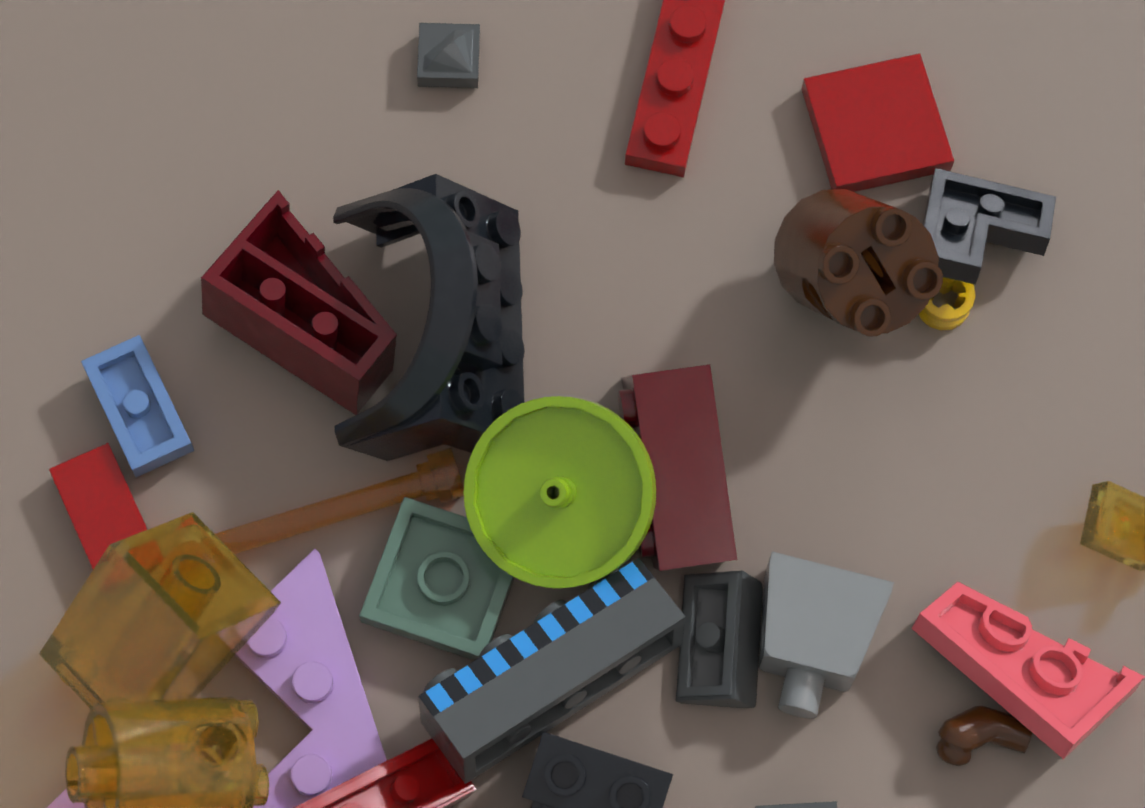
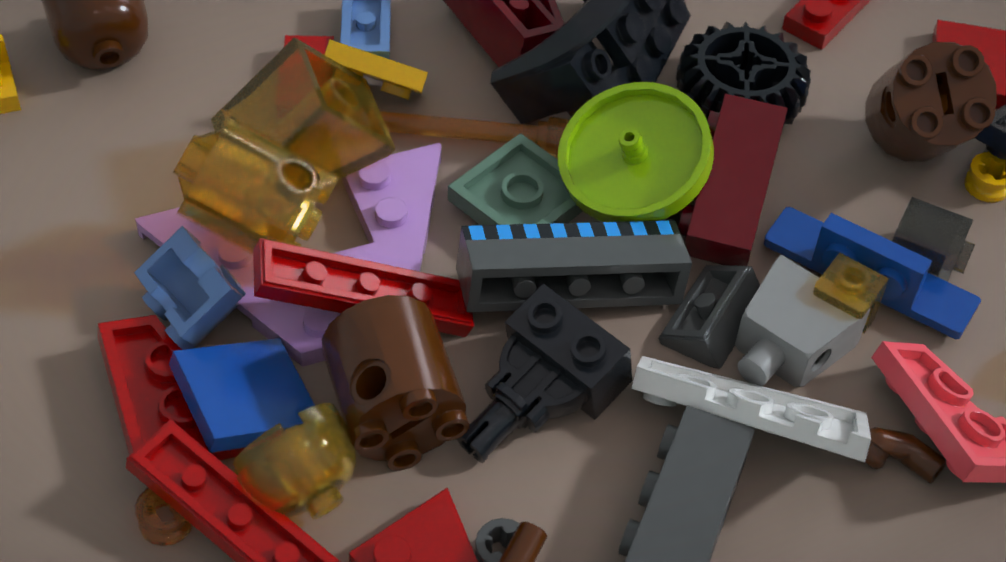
camera: 25 degrees right, 20 degrees down
(194, 486) = (396, 77): none -> yellow plate
(663, 265) = (745, 65): none -> black gear
(841, 757) = (767, 409): none -> white wing
(861, 563) = (852, 288): none -> clear yellow bracket
(865, 503) = (909, 285): none -> blue bracket
(917, 439) = (937, 236): none -> clear smoke brick

